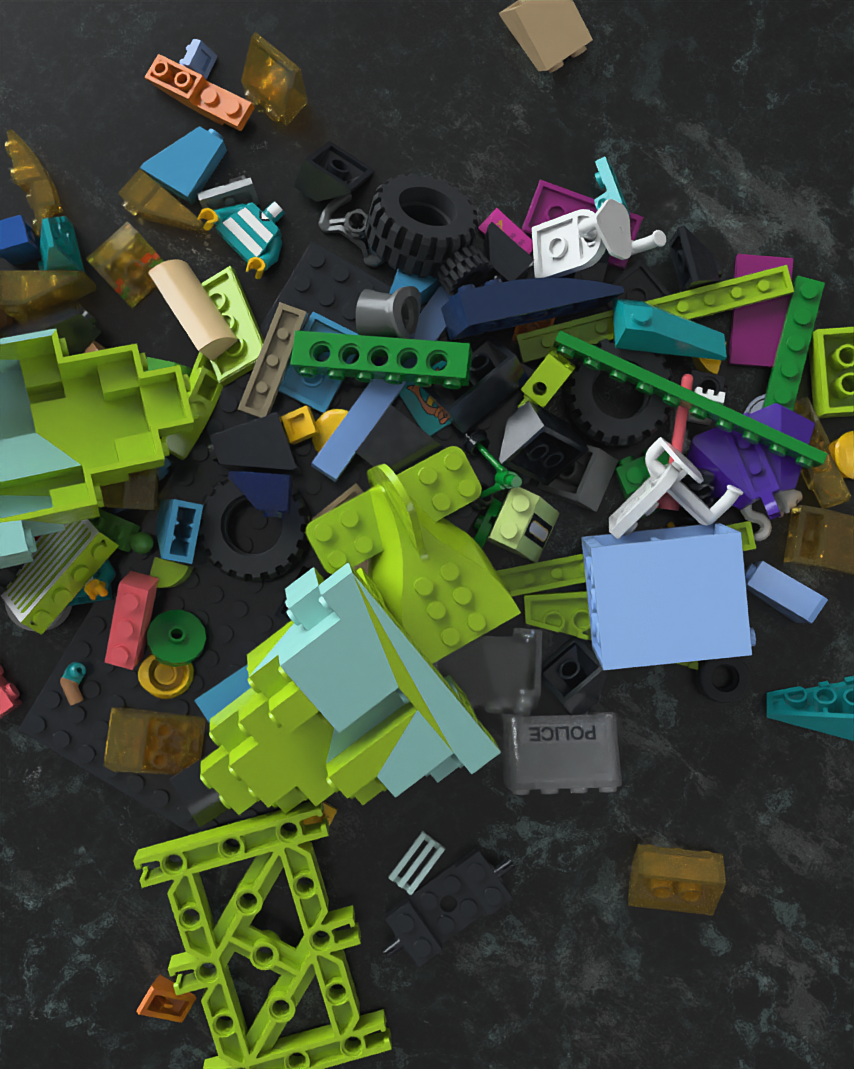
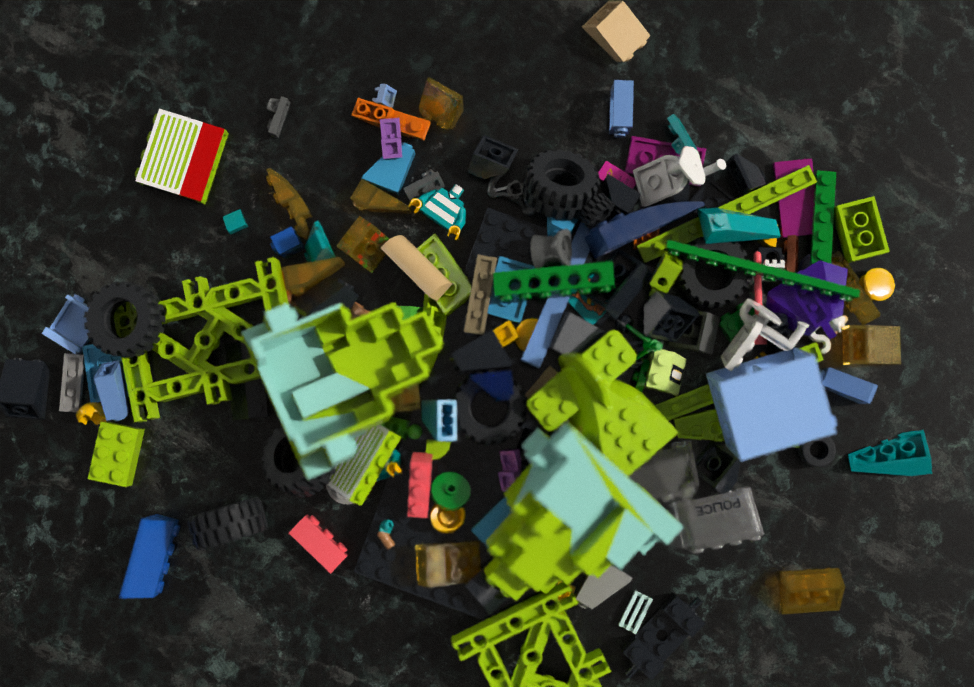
camera: 15 degrees left, 0 degrees up
(45, 53) = (280, 110): none -> dark grey hinge
(192, 117) = (391, 138): none -> medium lavender slope
(272, 617) = (511, 467): none -> medium lavender slope
(374, 818) = (595, 590): none -> light grey slope
(531, 134) = (621, 108): none -> medium blue window
(740, 380) = (791, 246): none -> copper plate

